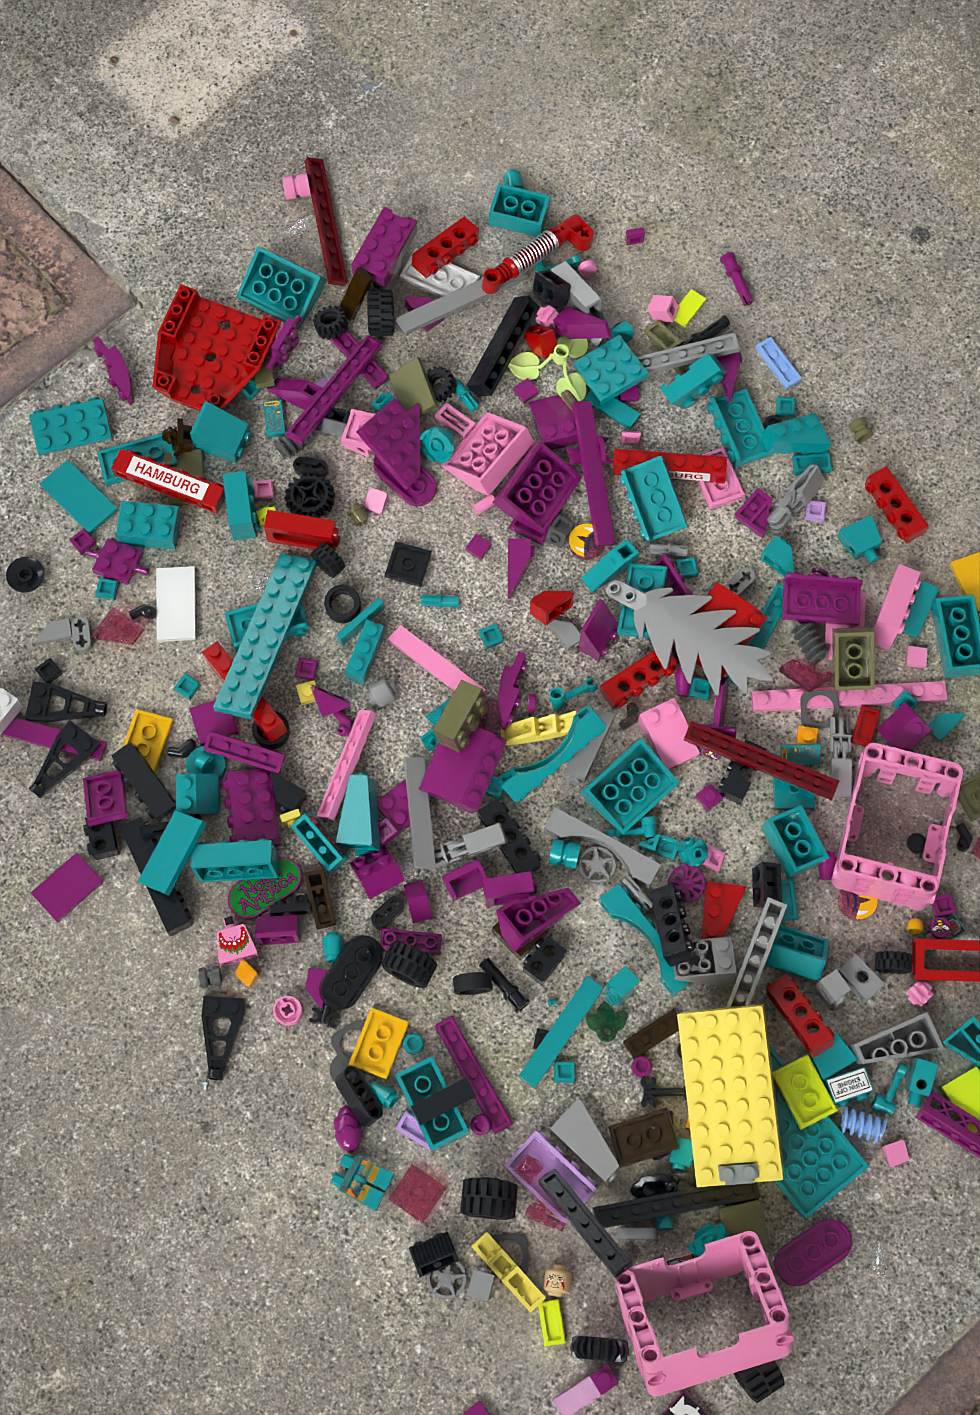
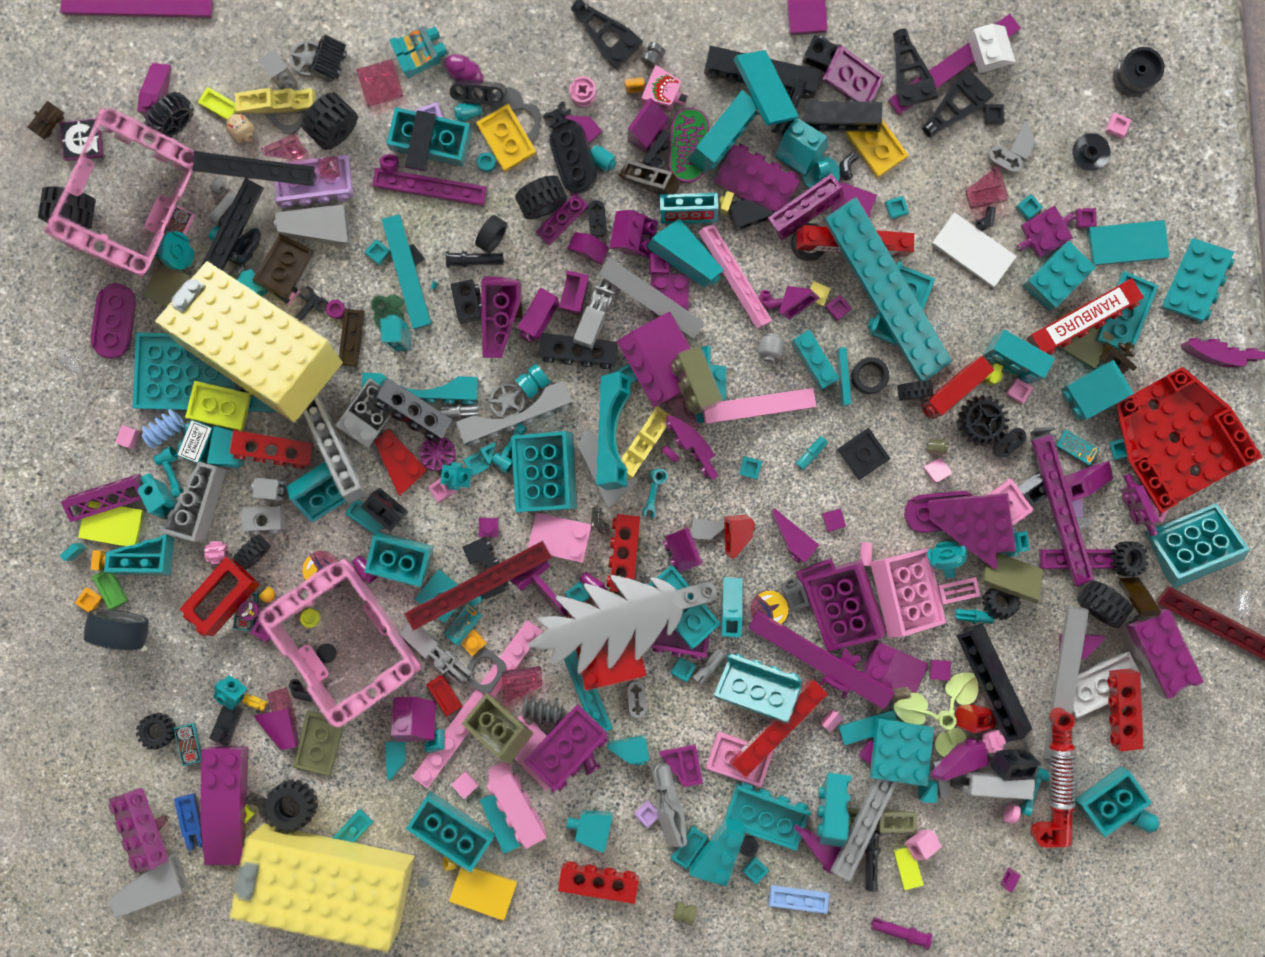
camera: 130 degrees right, 15 degrees up
(264, 377) = (1120, 466): olive tile -> none

